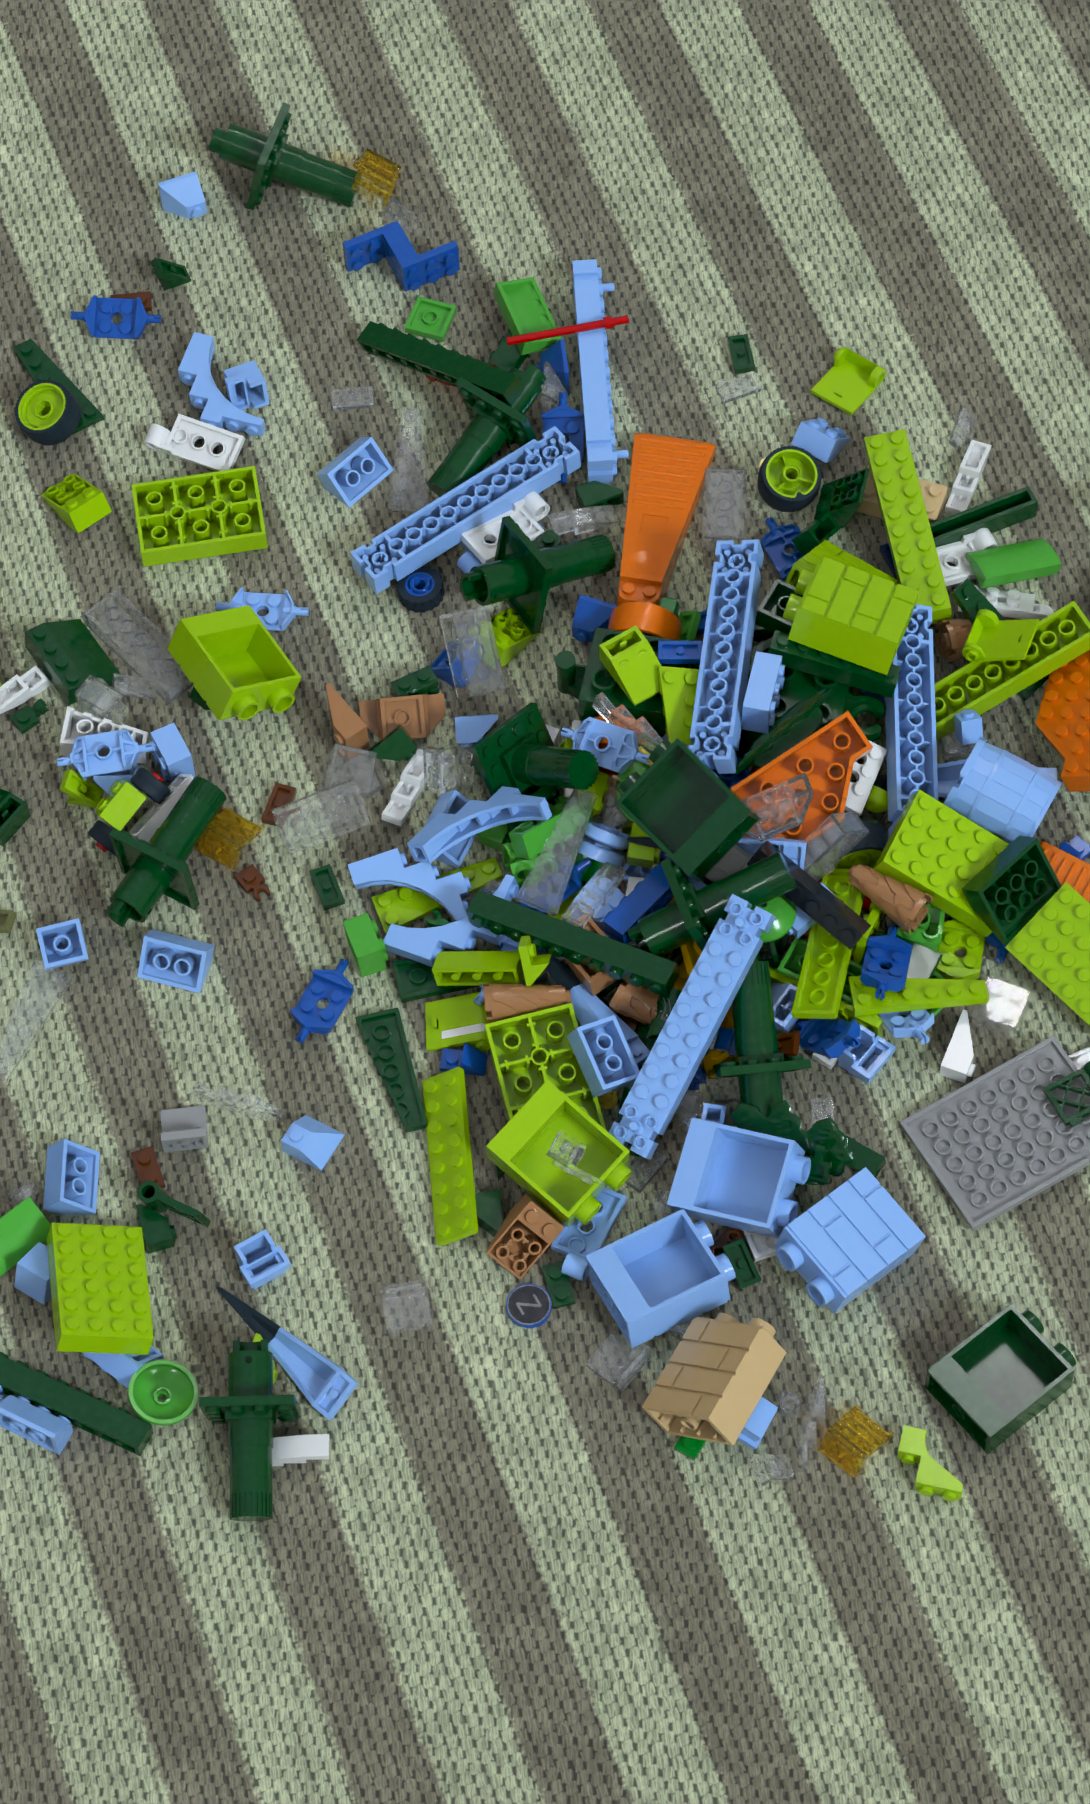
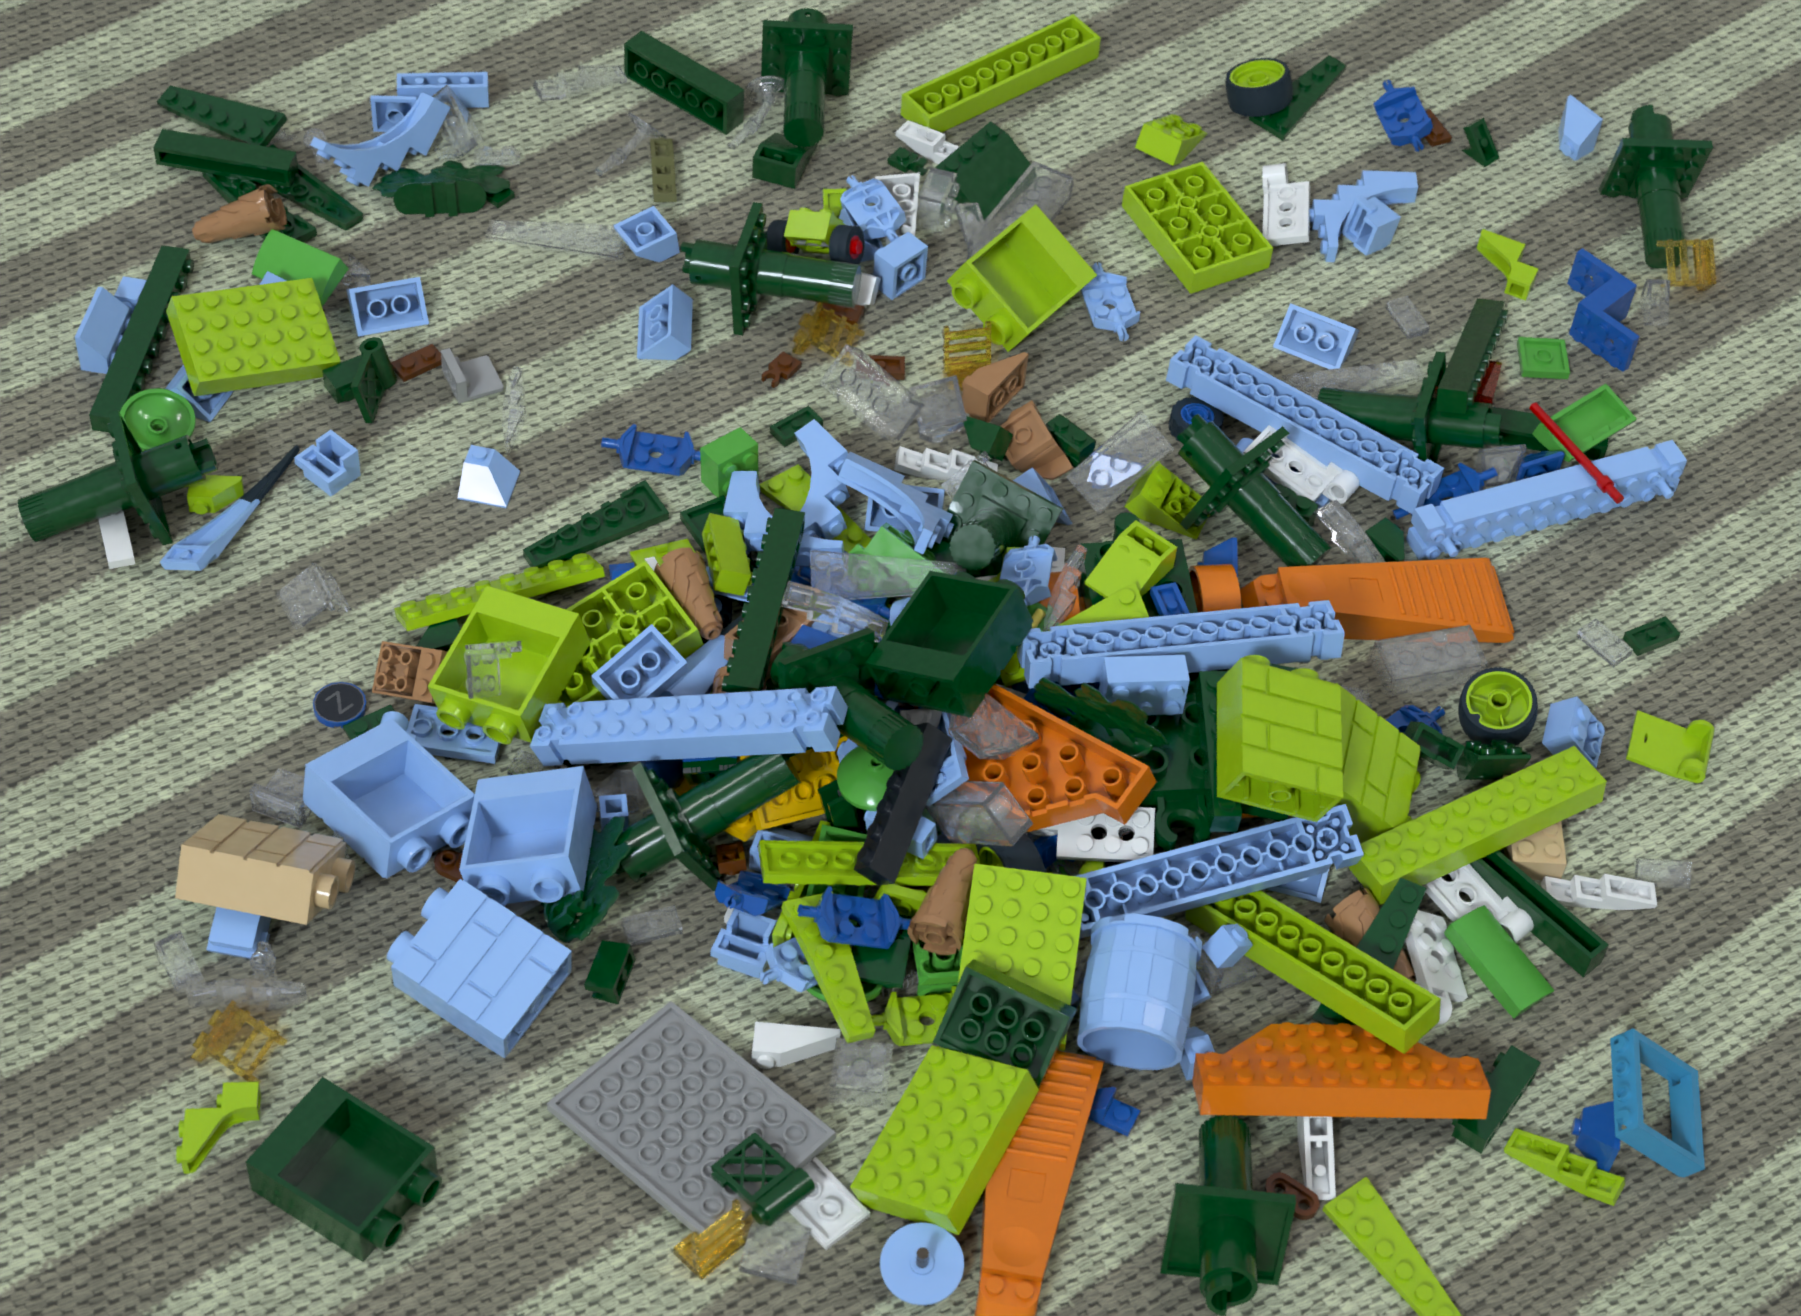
camera: 65 degrees right, 10 degrees down
(304, 737) = (968, 364): none -> clear yellow plate
(309, 301) = (1506, 256): none -> lime arch
(531, 963) = (732, 574): lime slope -> none
(742, 1263) = (441, 875): dark green plate -> none
(998, 639) = (1354, 935): lime door -> none

